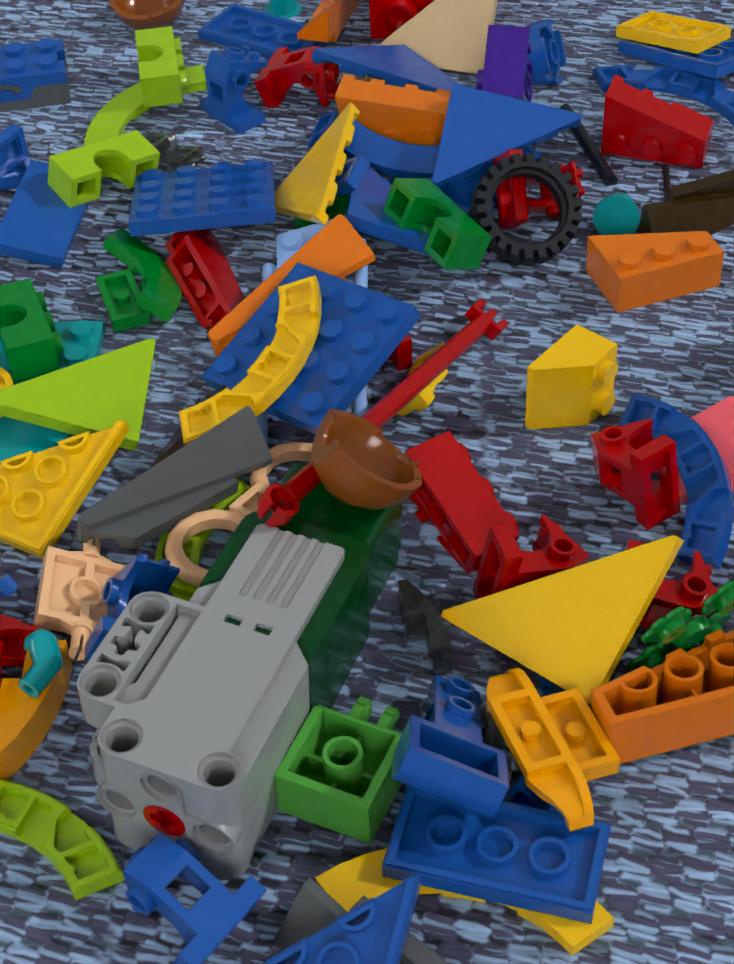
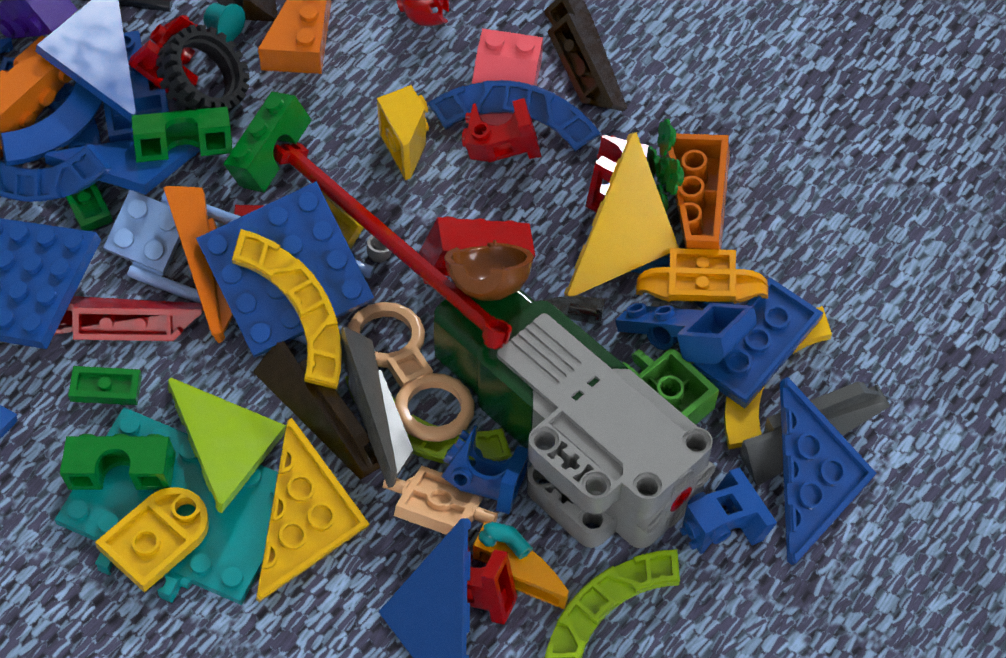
camera: 70 degrees left, 15 degrees up
(159, 288) = (109, 353): green tile -> none
(311, 183) = (60, 188): yellow tile -> none
(410, 421) = (377, 251): none -> light grey hinge
(507, 566) = (560, 222): red tile -> none
(512, 282) = (252, 157): none -> green arch

